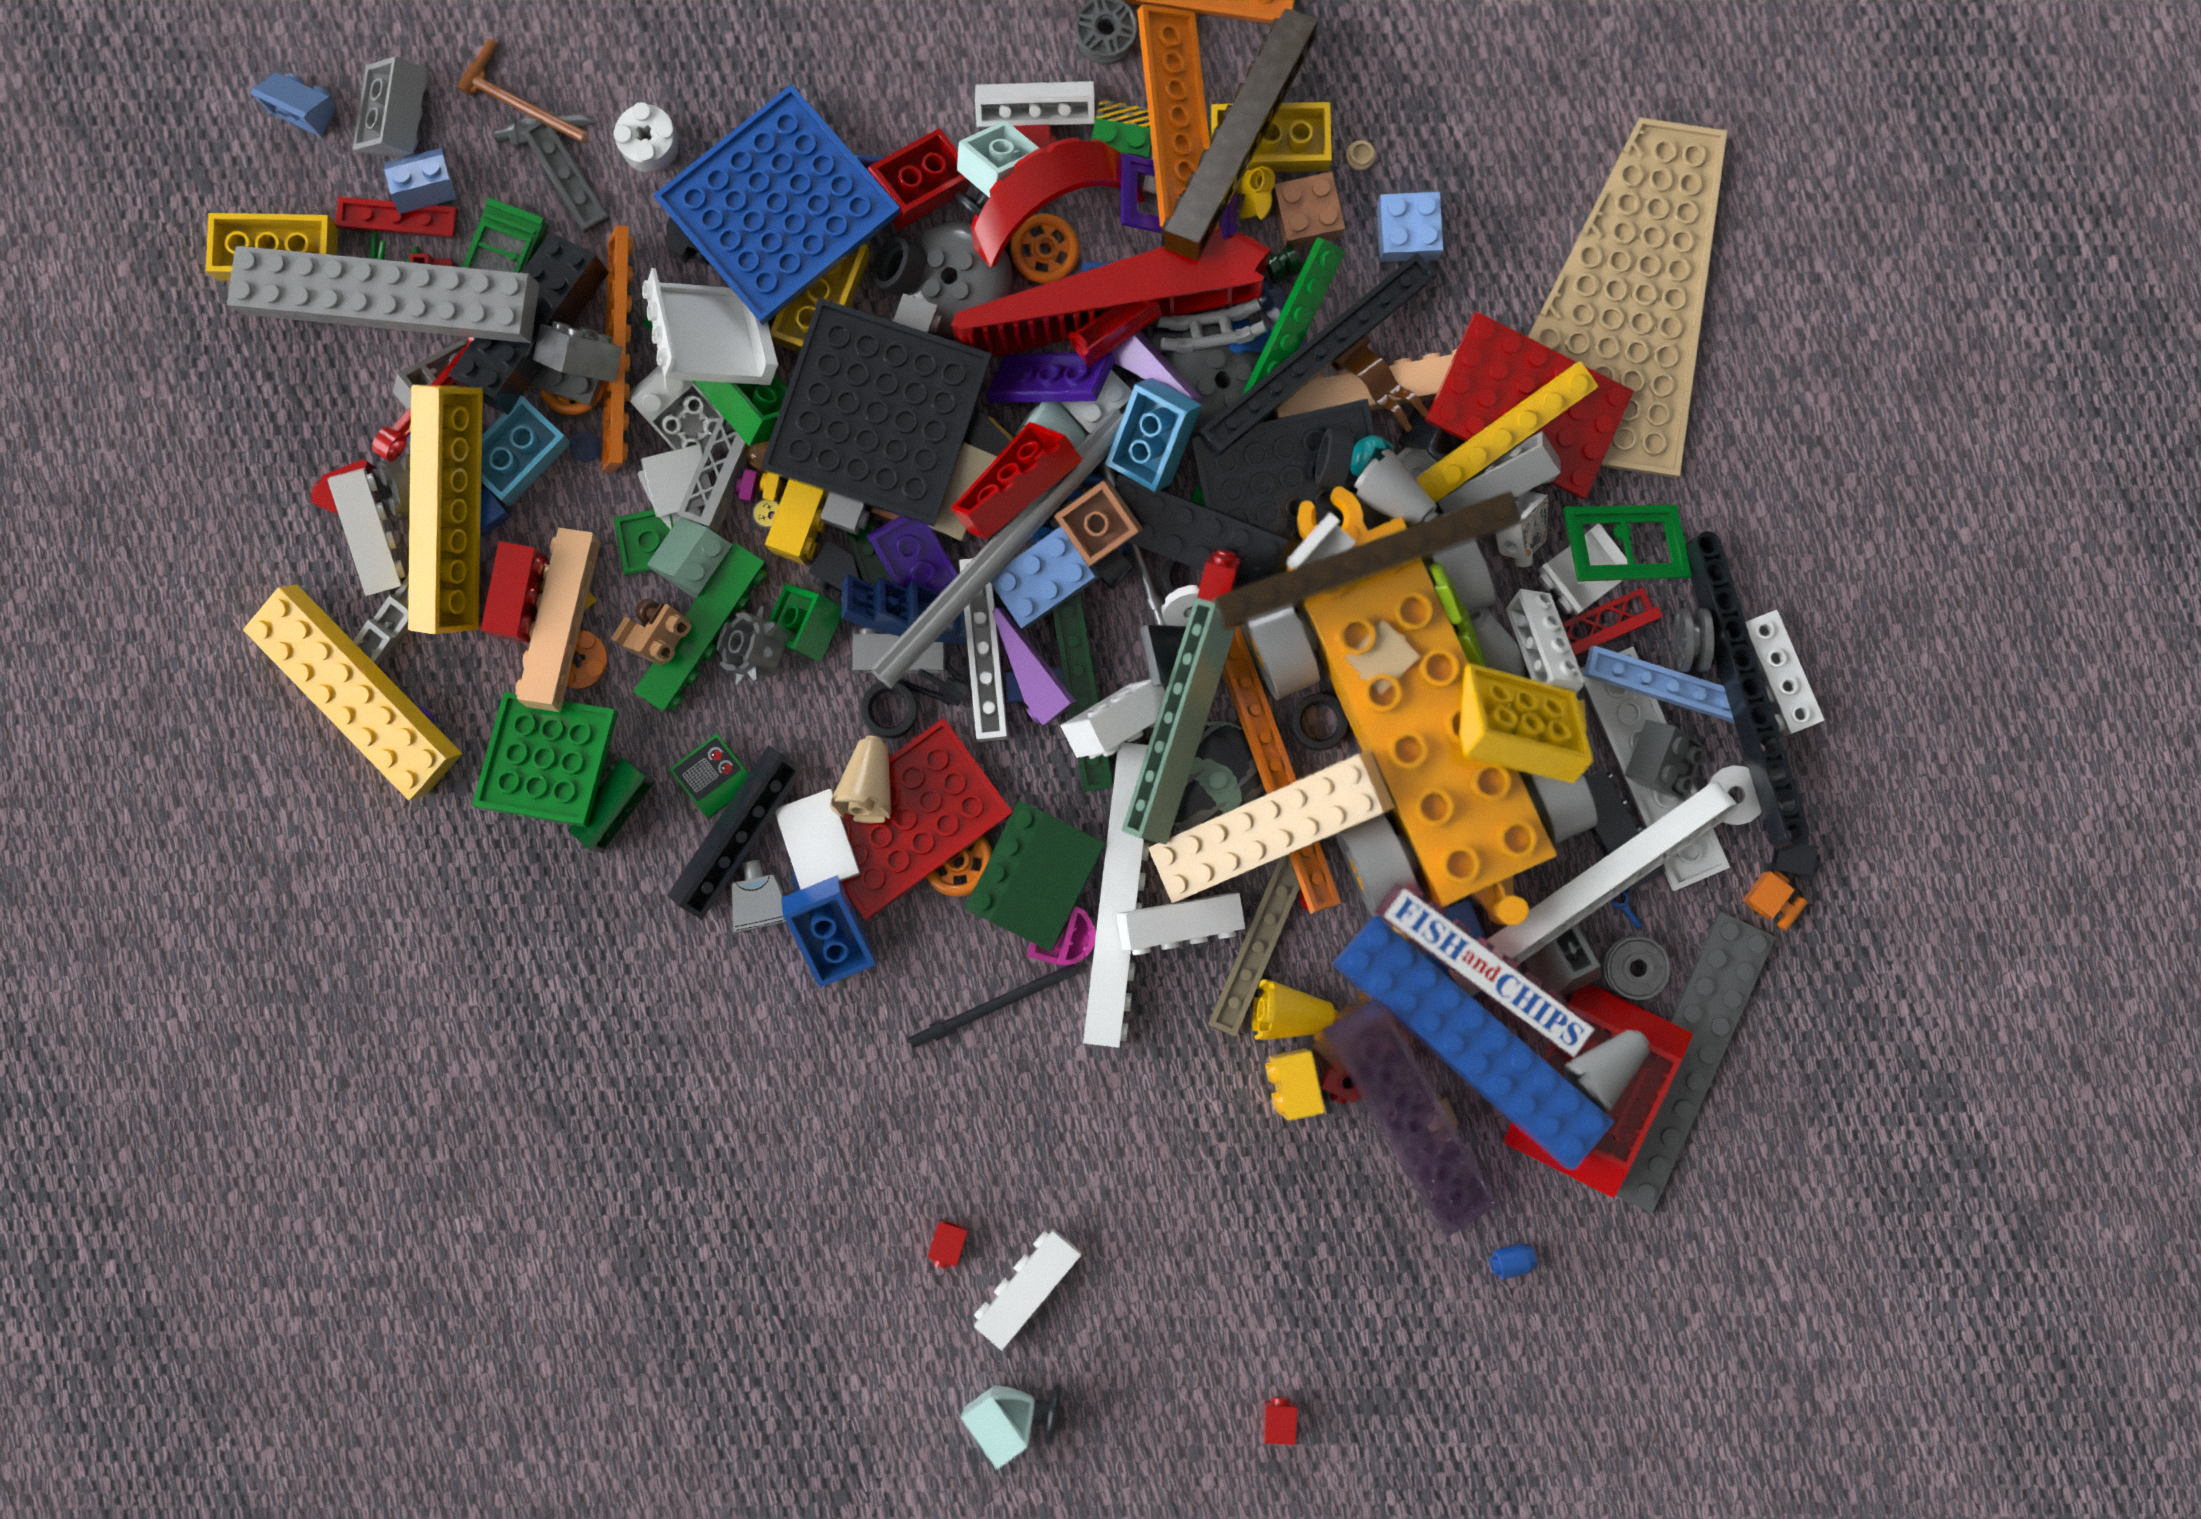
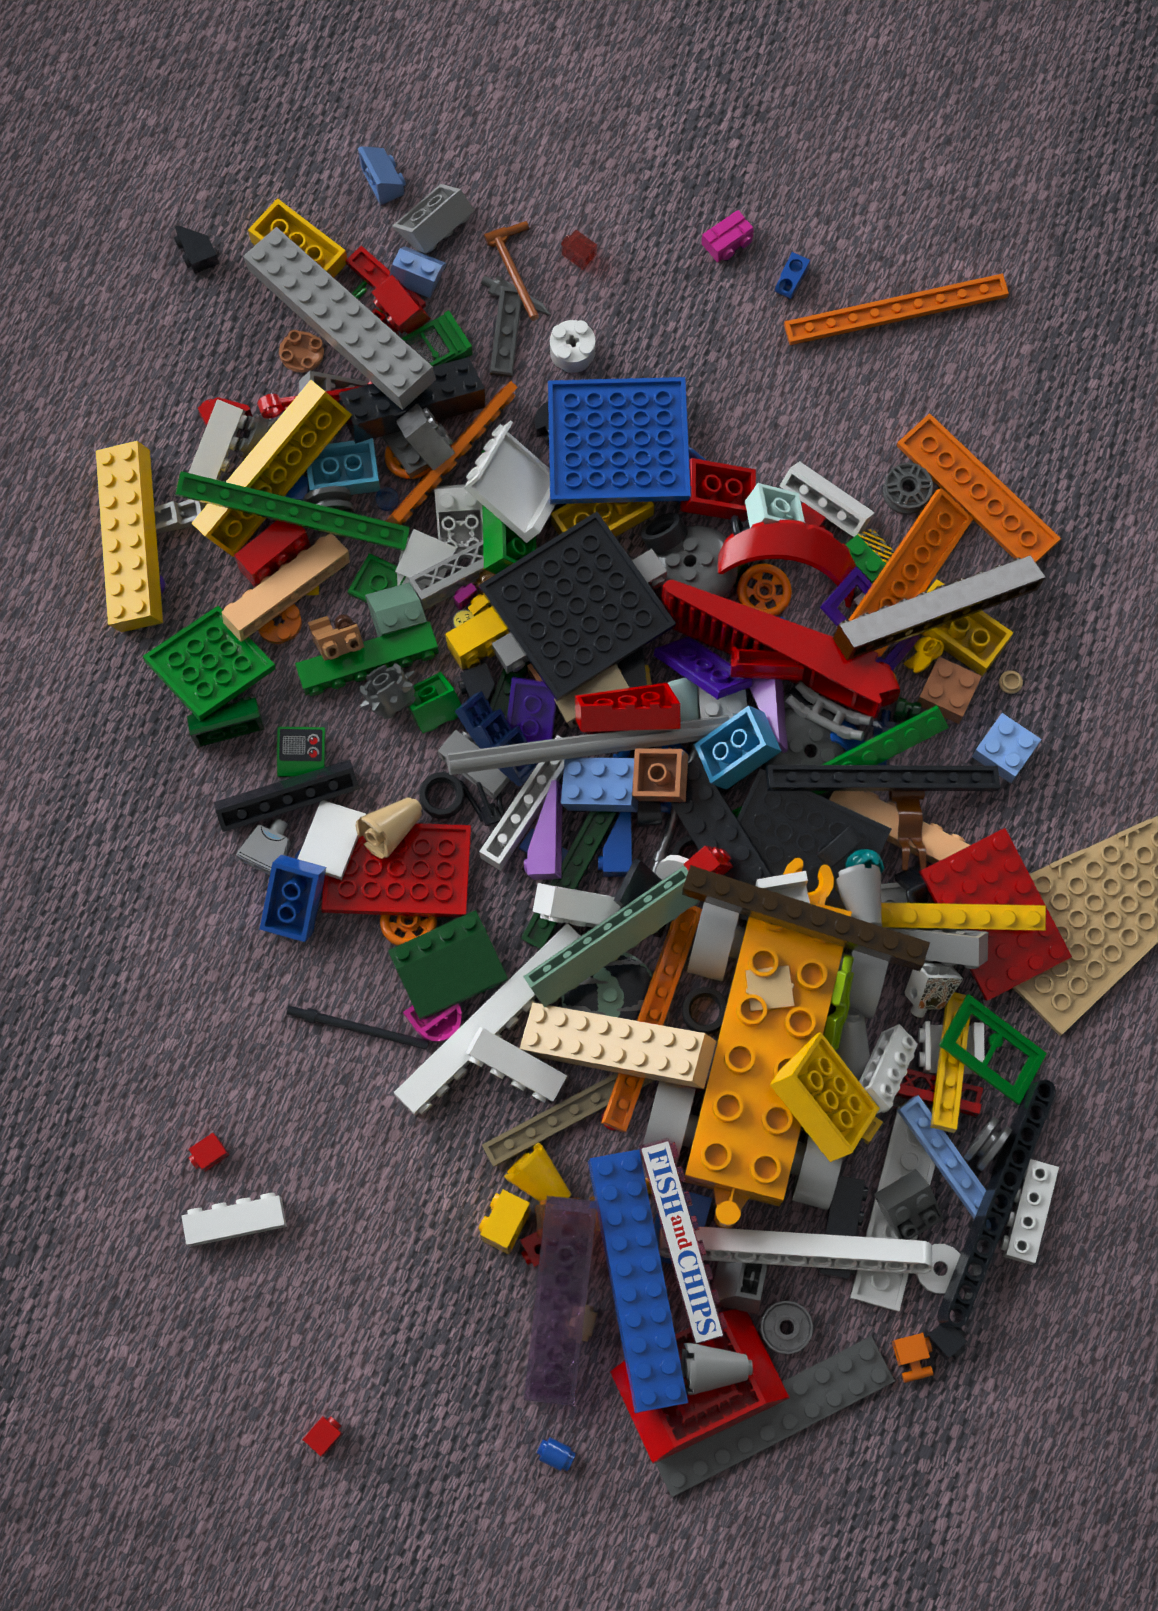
camera: 40 degrees right, 10 degrees down
(167, 330) = (197, 248): none -> black slope
(368, 358) = (301, 351): none -> nougat dish
(434, 231) = (399, 305): none -> red brick
(502, 539) = (291, 511): none -> green plate
(532, 500) = (332, 497): none -> dark grey wheel
(569, 28) = (578, 249): none -> clear red brick
(1003, 1420) = (152, 1290): light aqua piece -> none
(1109, 629) = (617, 849): none -> blue slope
(1604, 598) = (949, 1074): none -> yellow plate
(1626, 909) = (810, 1286): blue hand -> none

